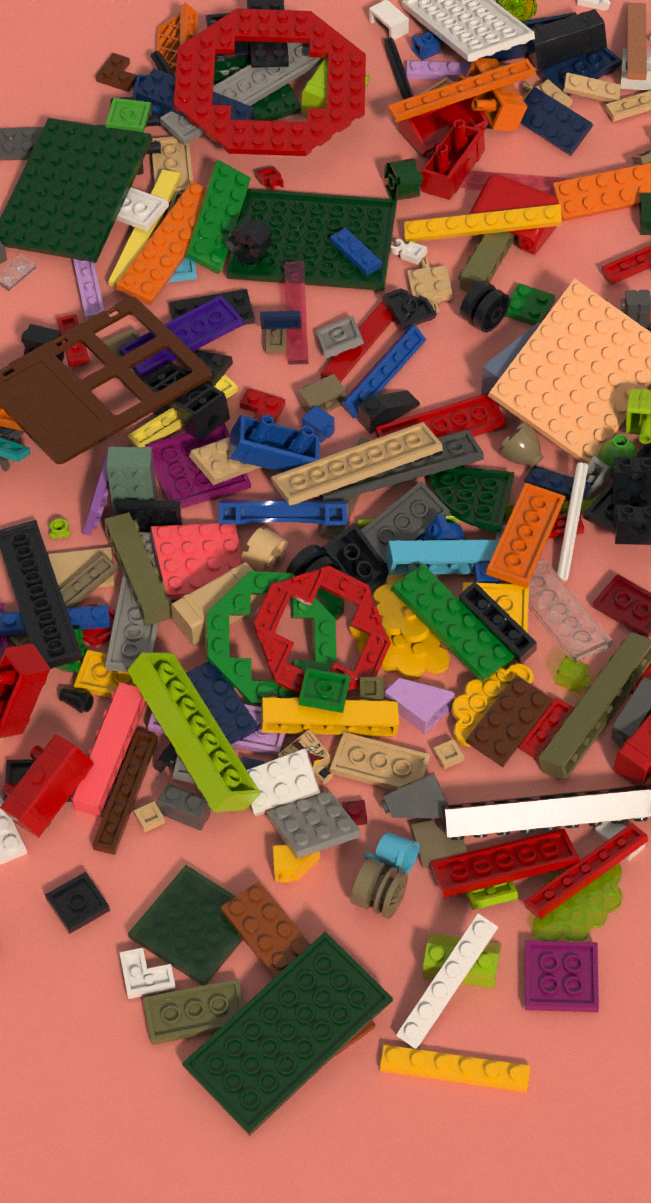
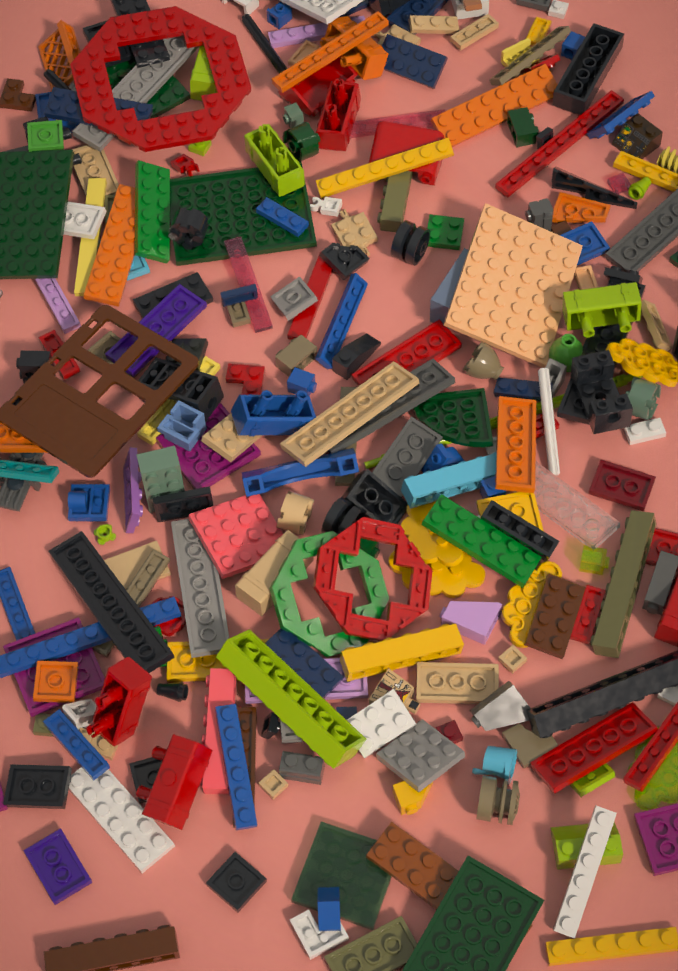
camera: 15 degrees left, 5 degrees up
(52, 493) = (88, 502): none -> blue plate
(113, 787) = (236, 767): none -> blue plate
(137, 568) = (190, 557): olive brick -> none
(162, 951) = (329, 909): none -> blue slope
(175, 437) = (183, 425): none -> medium blue plate
(294, 163) = (200, 148): none -> lime plate
(324, 690) = (393, 631): green plate -> none
(365, 190) = (274, 160): none -> lime piece
(372, 688) = (429, 616): olive plate -> none
(404, 149) = (293, 115): none -> sand green plate

